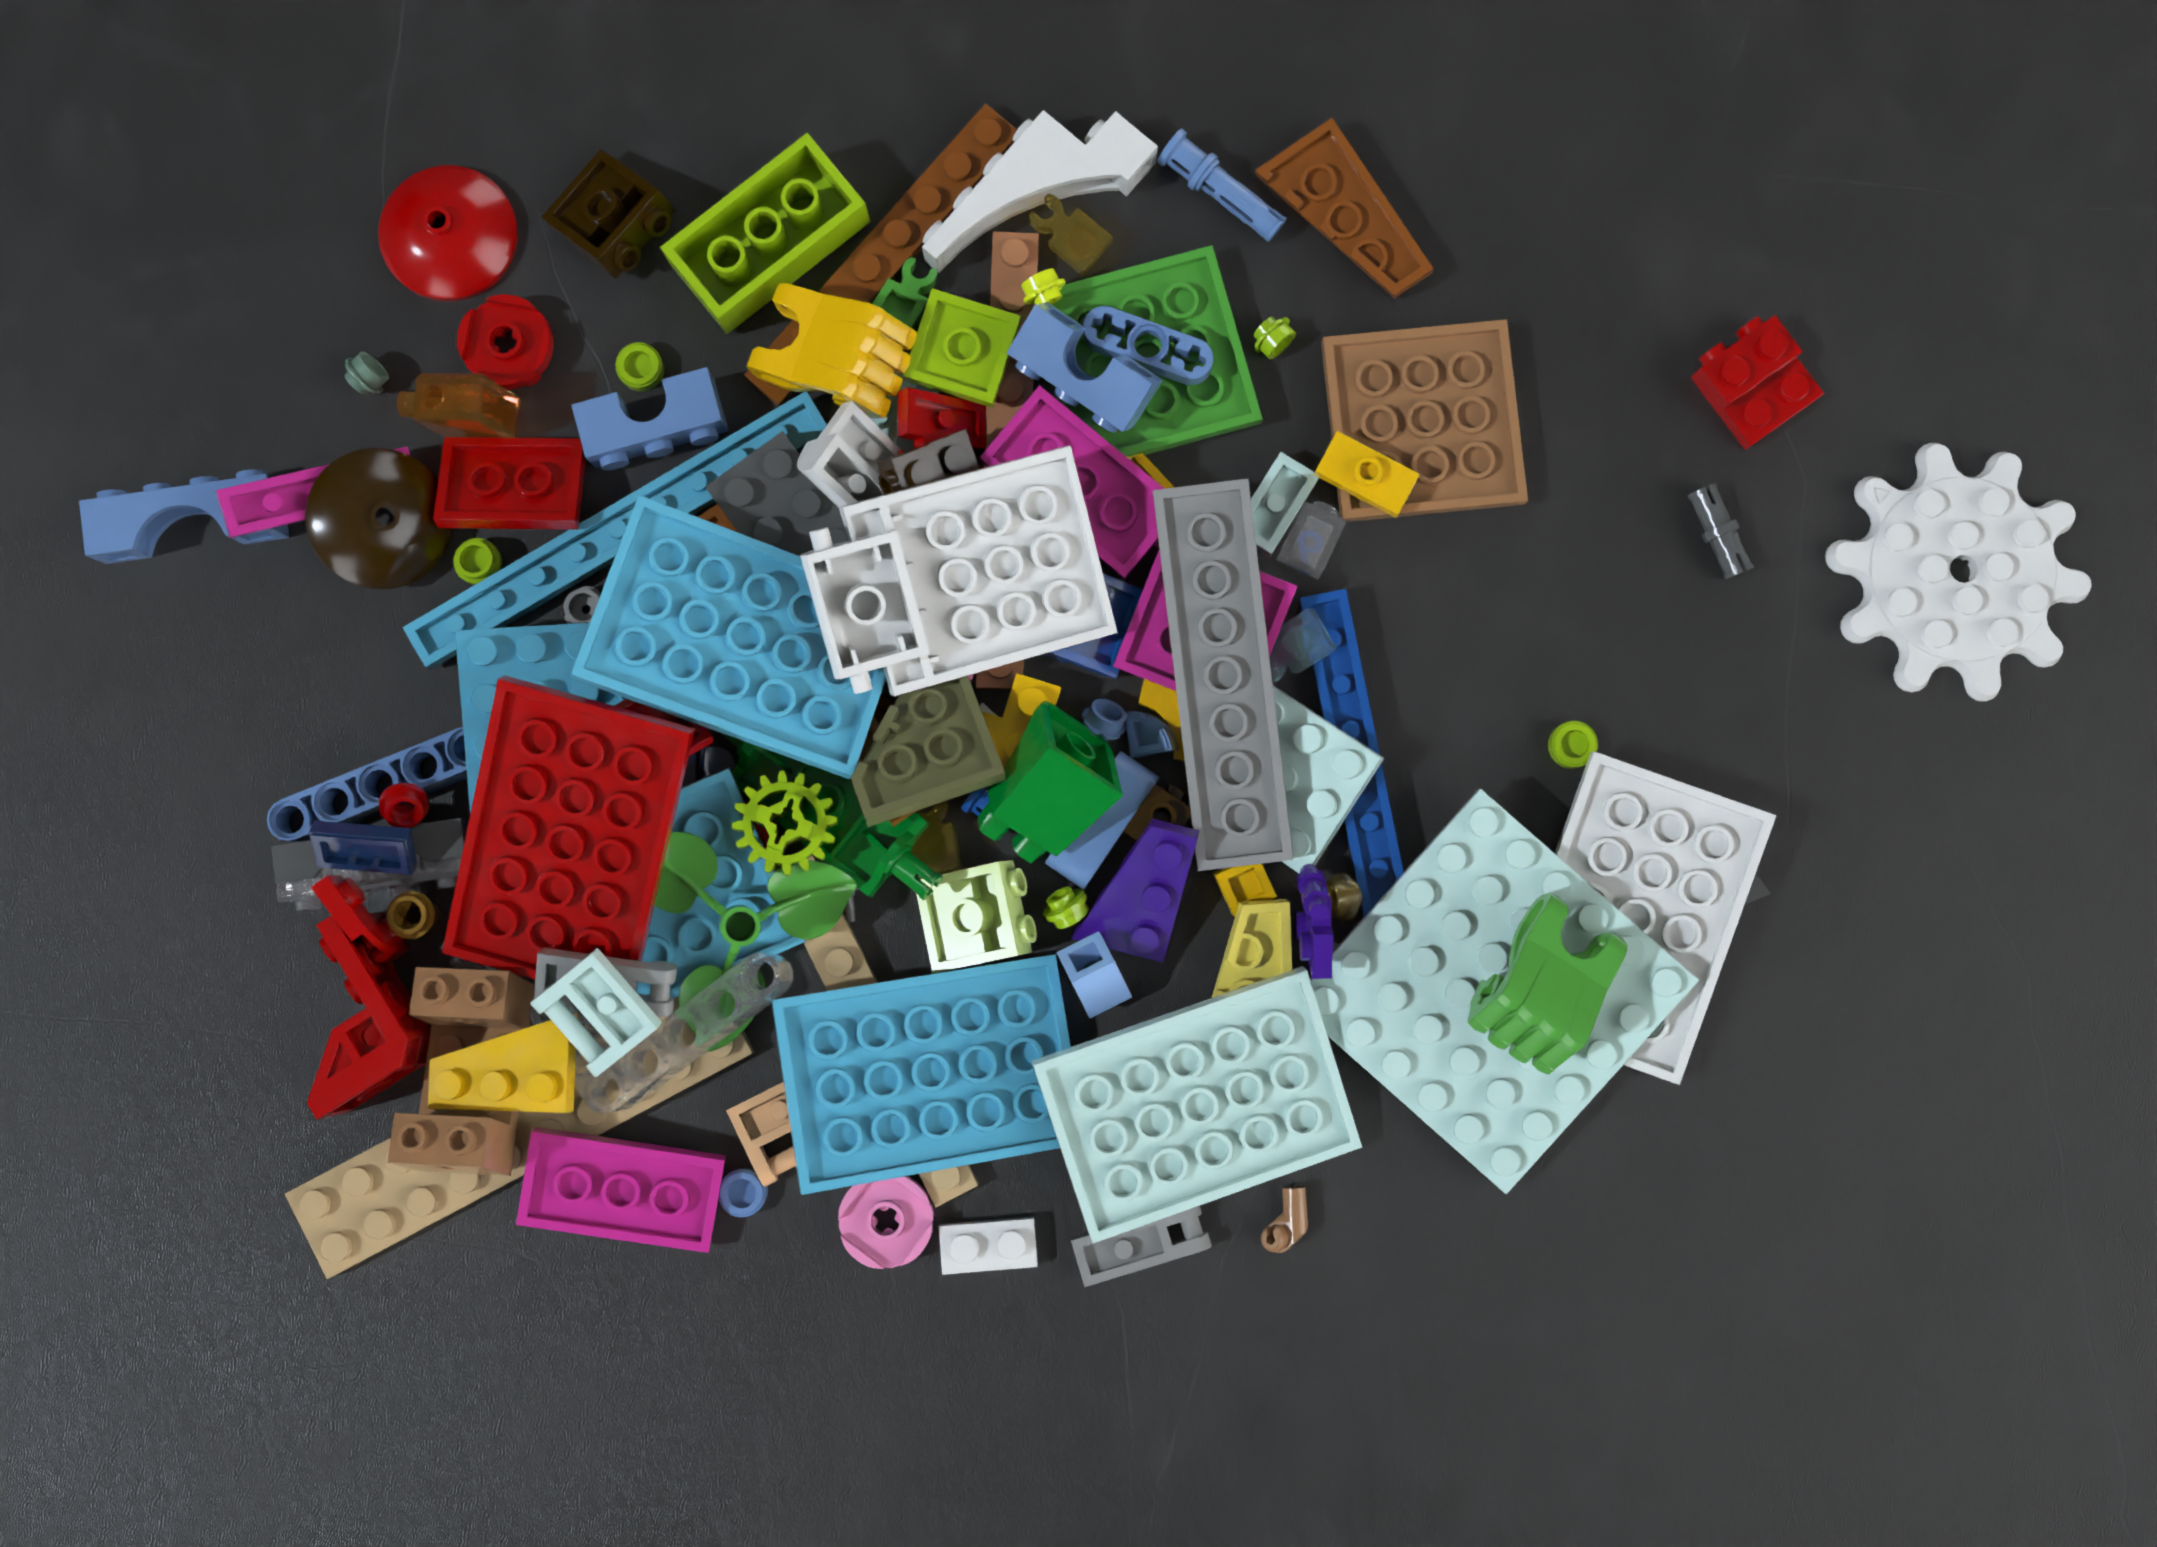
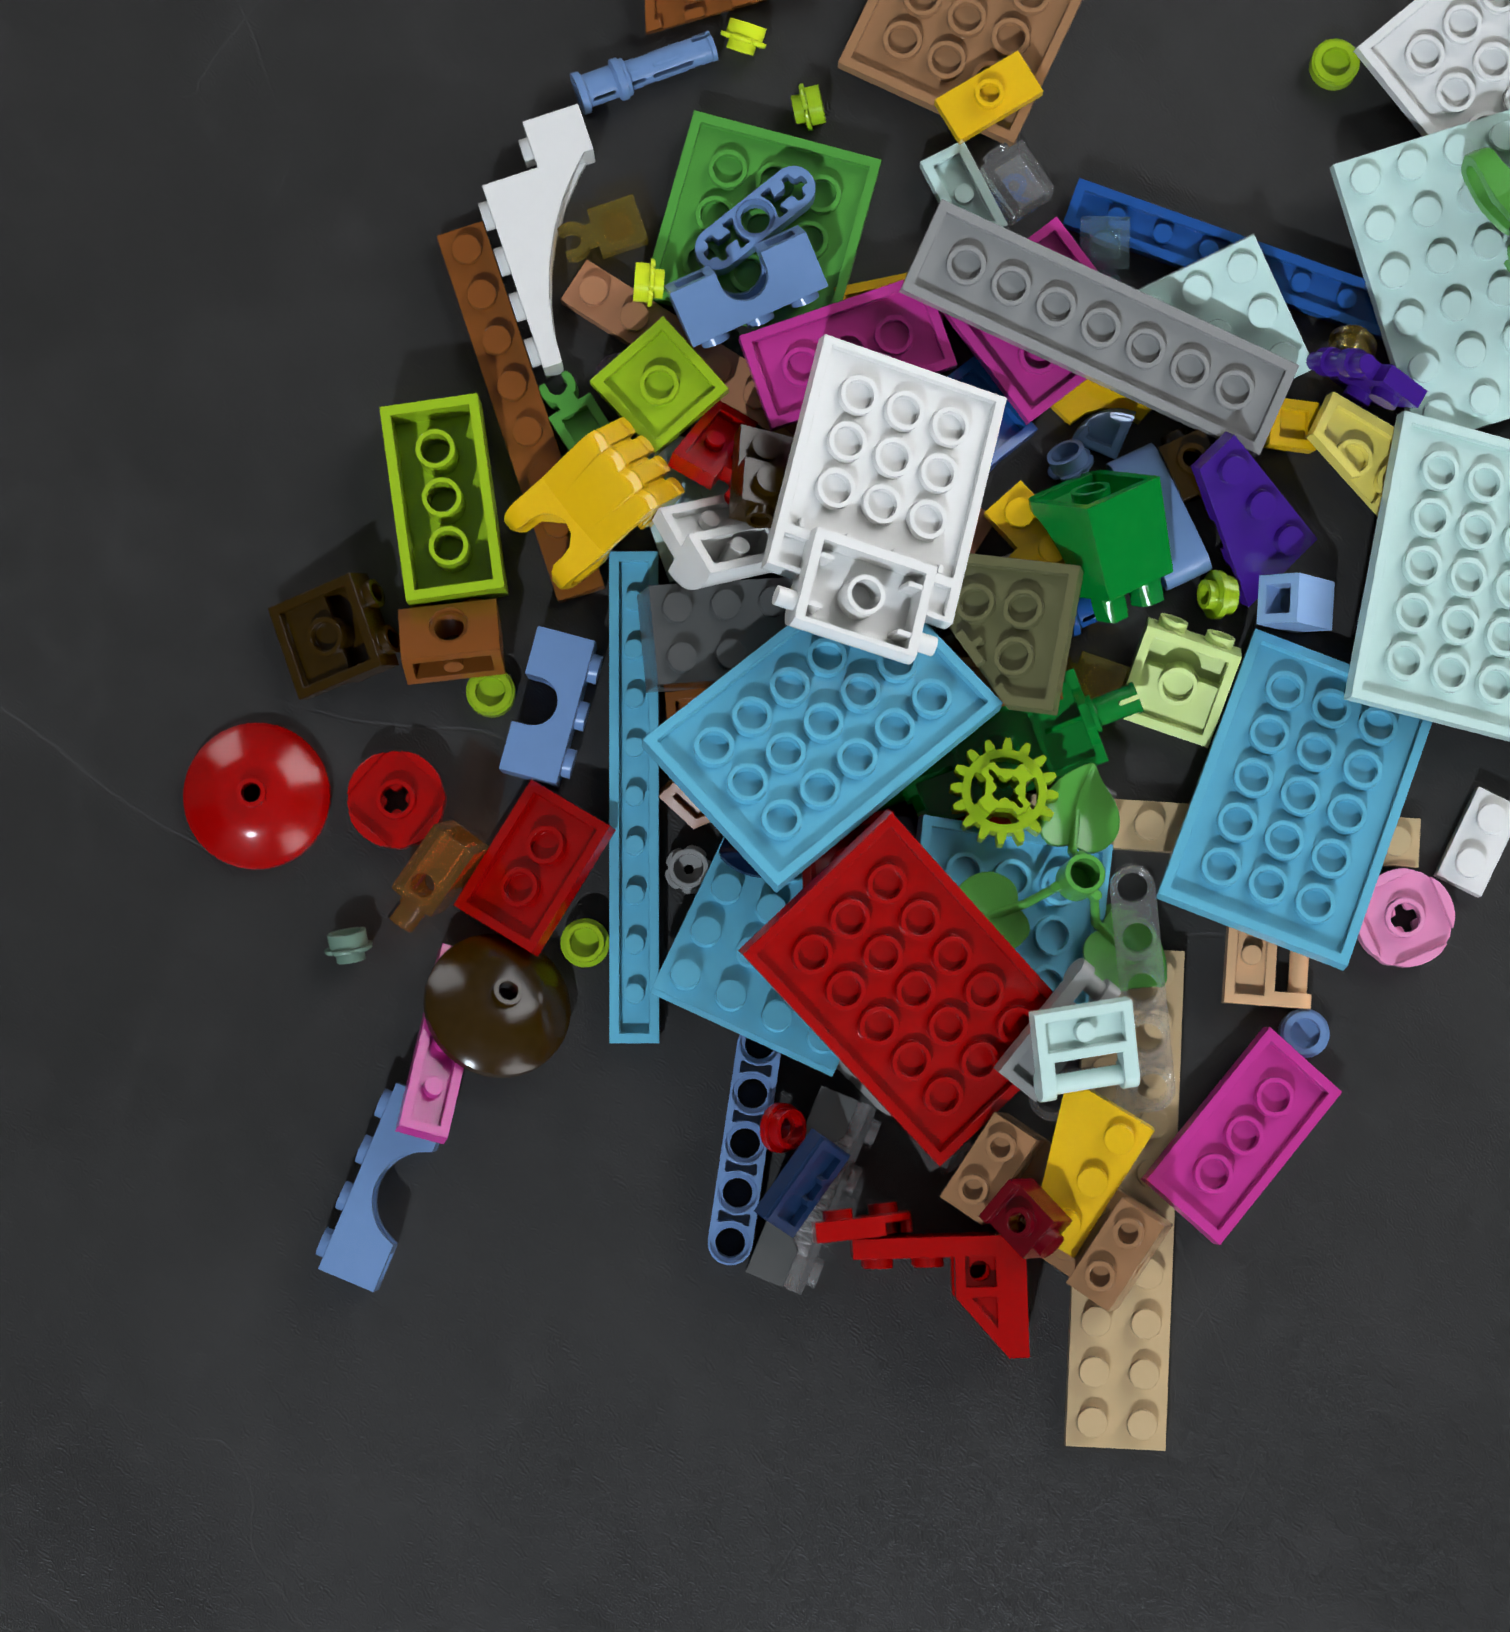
camera: 55 degrees left, 0 degrees up
(403, 915) = (900, 1183): pearl gold cone -> none
(431, 1049) = (1043, 1218): none -> dark red brick
(660, 332) = (471, 655): none -> dark orange brick
(1299, 250) = (744, 36): none -> neon yellow plate

